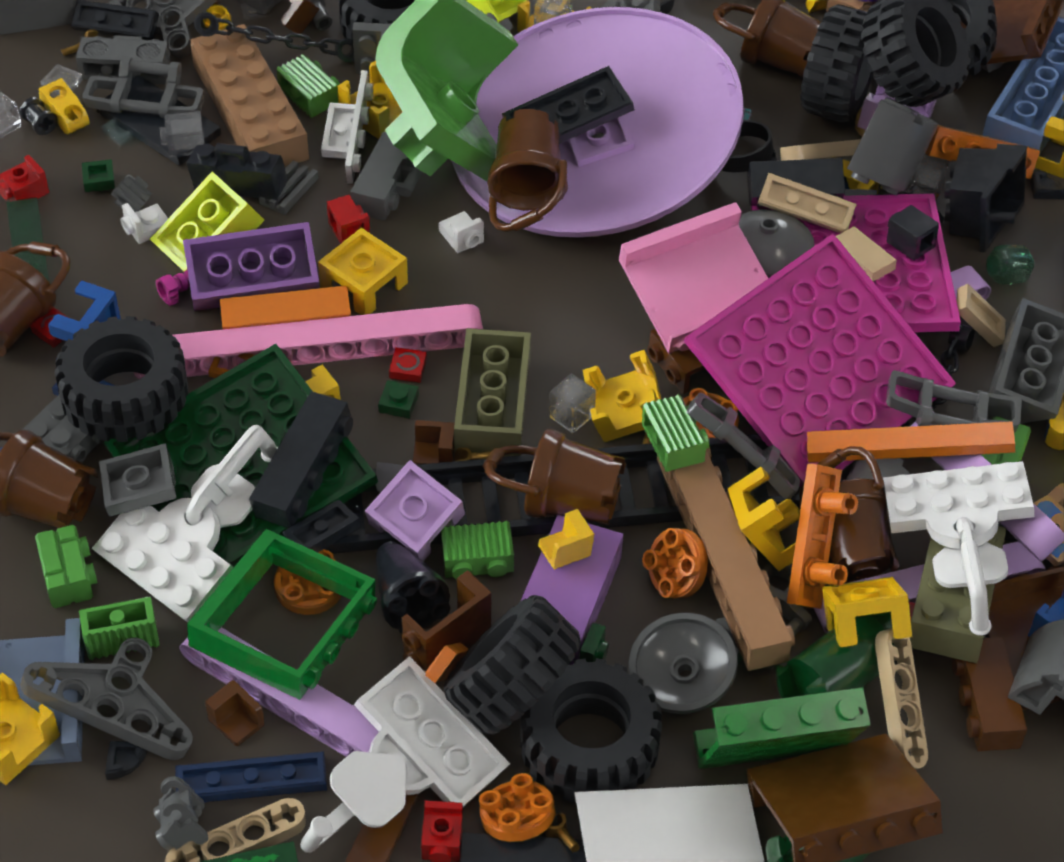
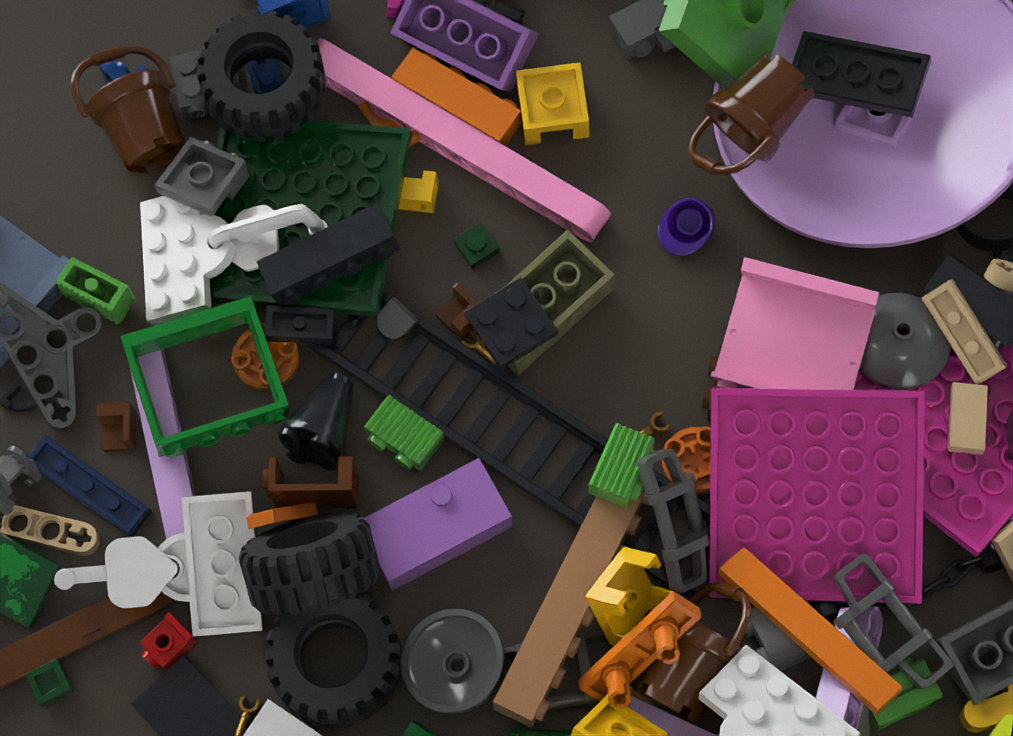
camera: 50 degrees right, 20 degrees up
(64, 565) = (108, 204): bright green brick -> none
(346, 217) = (589, 40): red brick -> none
(408, 365) = (512, 219): red tile -> none
(414, 509) = (378, 365): lavender panel -> none
(462, 231) = (674, 121): white bracket -> none
(490, 409) = (511, 323): none -> black plate
(517, 809) = (232, 671): orange tile -> none
(541, 283) = (686, 226): none -> dark purple hat
(564, 477) = (503, 431): reddish brown piece -> none
(571, 403) = (596, 361): clear brick -> none
(571, 543) = (451, 492): yellow panel -> none
(595, 645) = (408, 589): dark green plate -> none
(622, 398) = (642, 393): yellow panel -> none
(676, 563) = (531, 573): orange tile -> none

